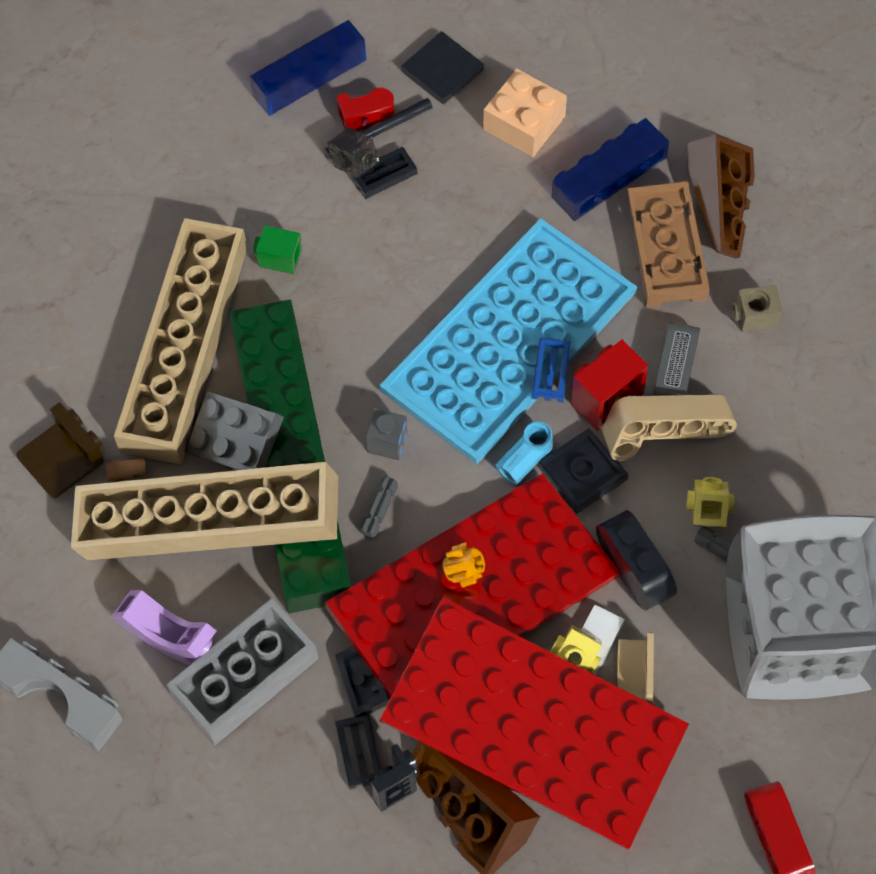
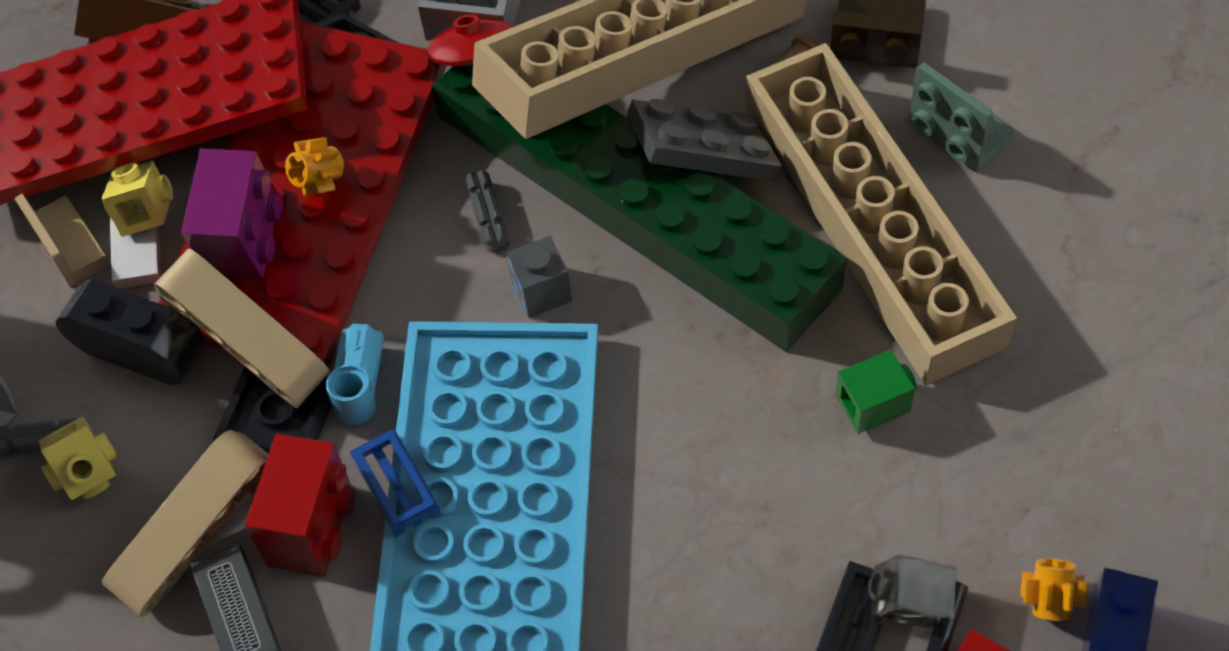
camera: 145 degrees right, 5 degrees down
(82, 362) = (956, 119): none -> sand green bracket
(290, 115) = (1054, 589): none -> light orange gear
(322, 588) = (457, 42): none -> red dish
(533, 558) = (232, 212): none -> magenta brick
(578, 506) = (241, 327): none -> tan beam

